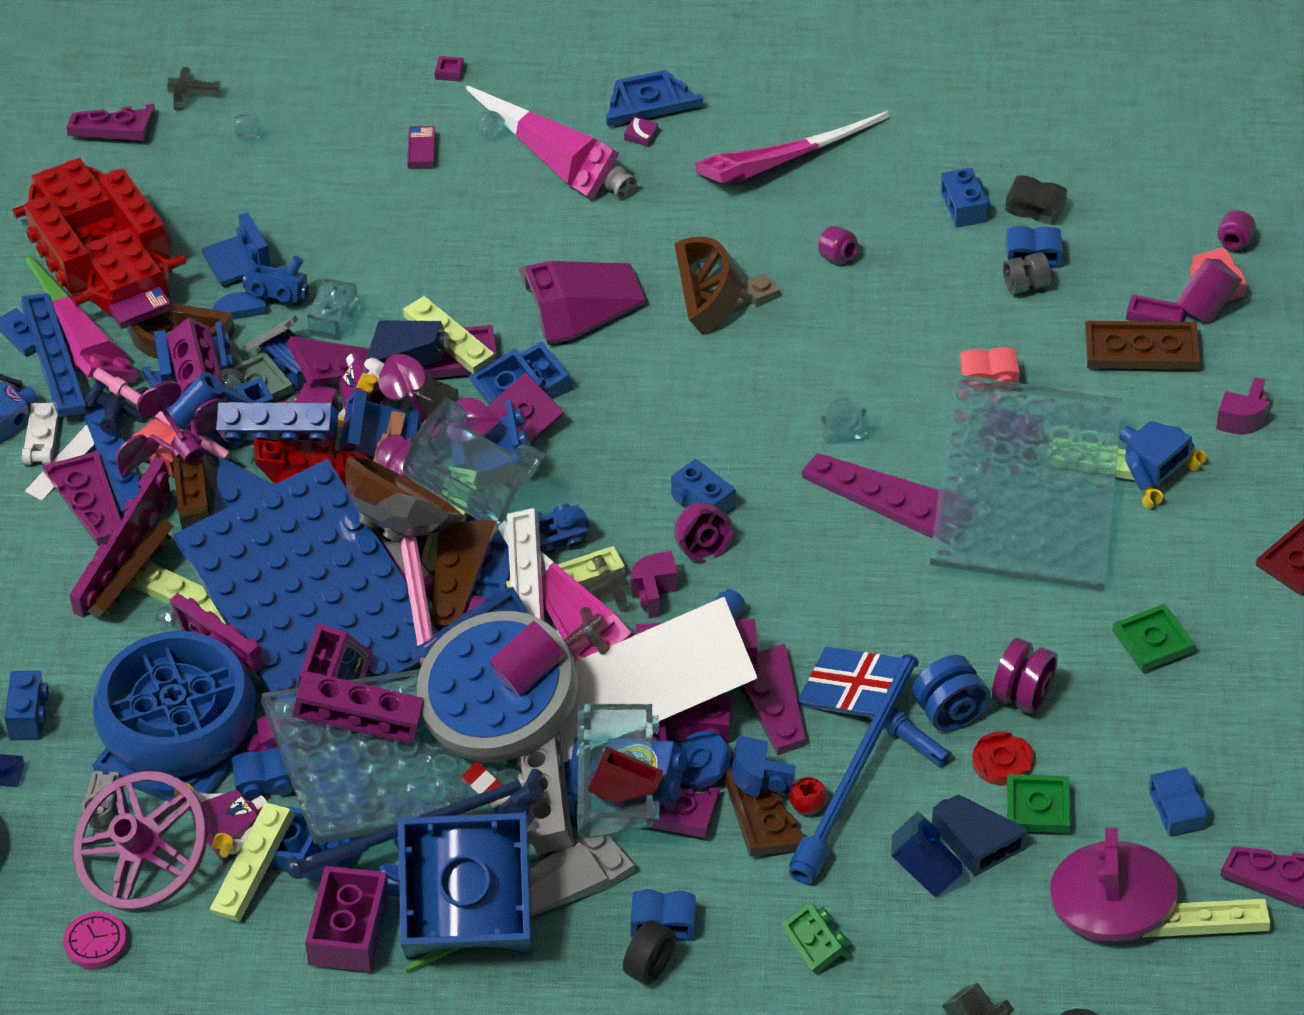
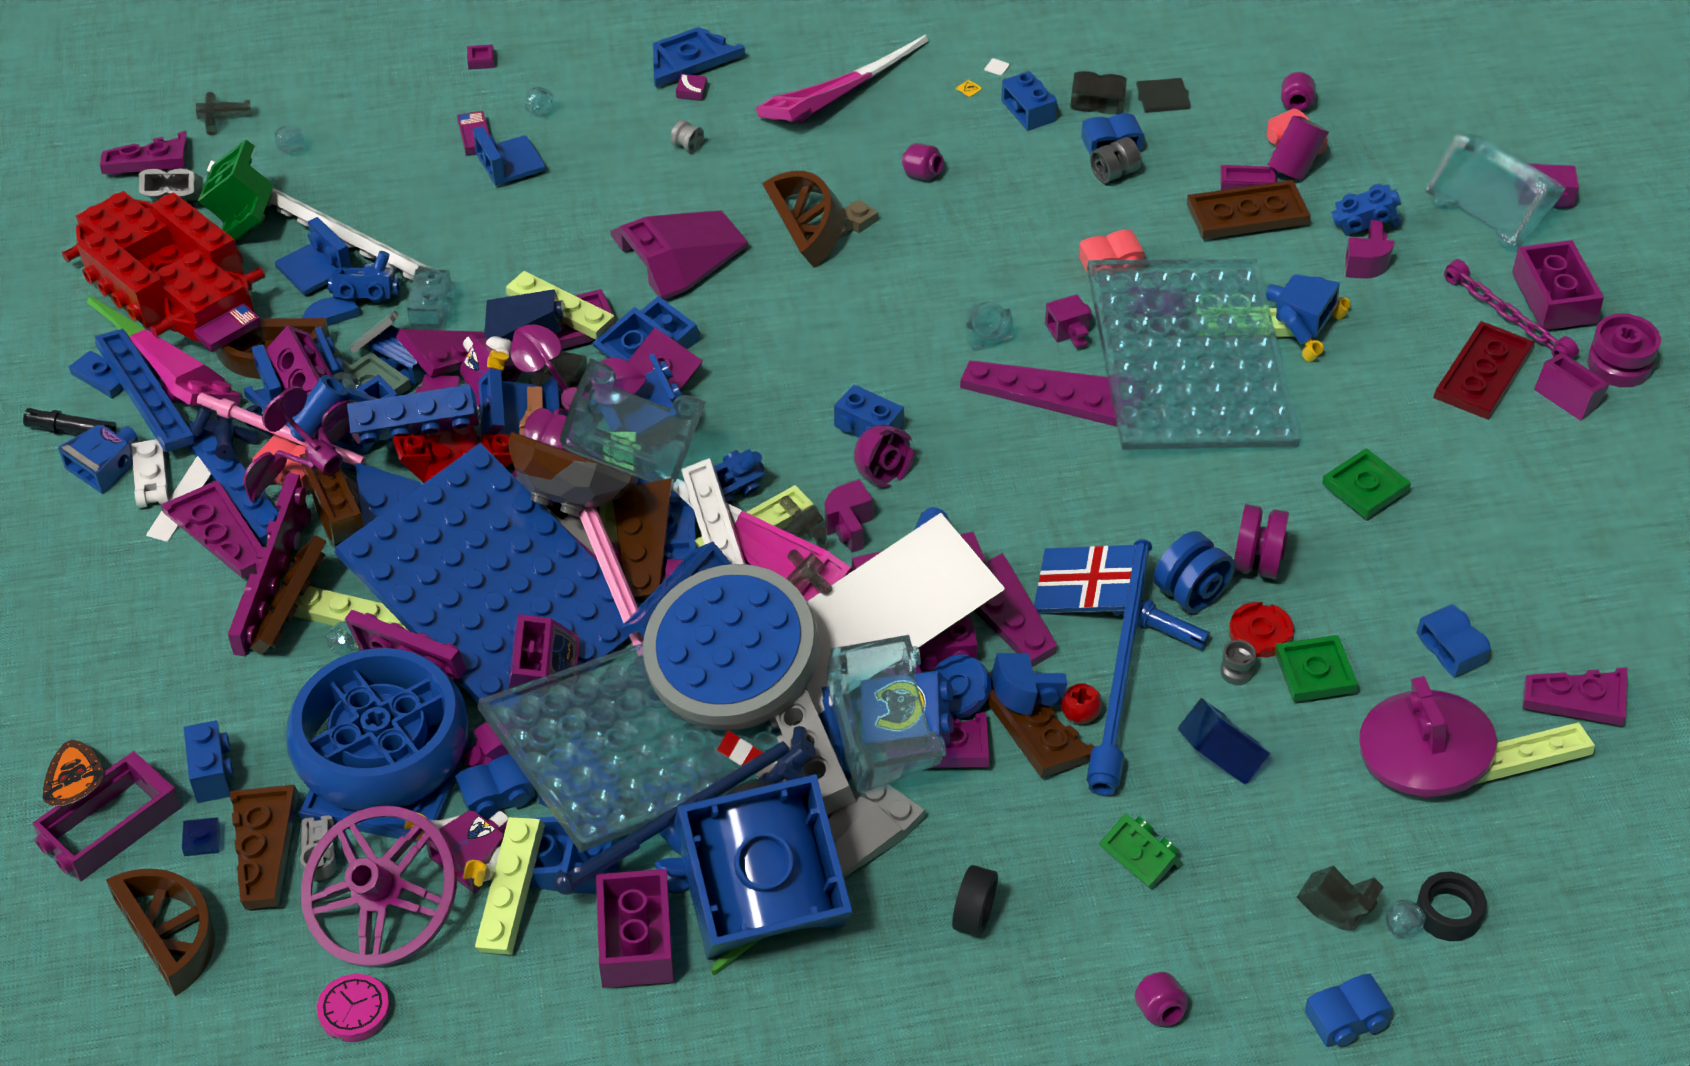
camera: 15 degrees left, 0 degrees up
(57, 778) = (263, 836): none -> reddish brown wing
(129, 157) = (158, 183): none -> light grey brick
(181, 176) = (237, 191): none -> green bracket
(230, 195) = (351, 237): none -> white plate
(357, 707) = (587, 695): magenta brick -> none
(444, 179) = (506, 159): none -> blue bracket
(526, 658) = (763, 610): magenta brick -> none
(569, 153) = (632, 115): dark pink plate -> none
(623, 777) = (896, 718): dark red slope -> none
(670, 909) = (982, 848): blue brick -> none
(912, 174) = (968, 88): none -> yellow sticker
(925, 428) = (1068, 320): none -> magenta brick
(948, 155) = (996, 66): none -> white sticker
(967, 782) = (1238, 662): none -> flat silver wheel
(977, 834) = (1267, 709): dark blue slope -> none
(1103, 211) = (1163, 95): none -> clear smoke piece
(1264, 362) = (1357, 211): none -> blue brick

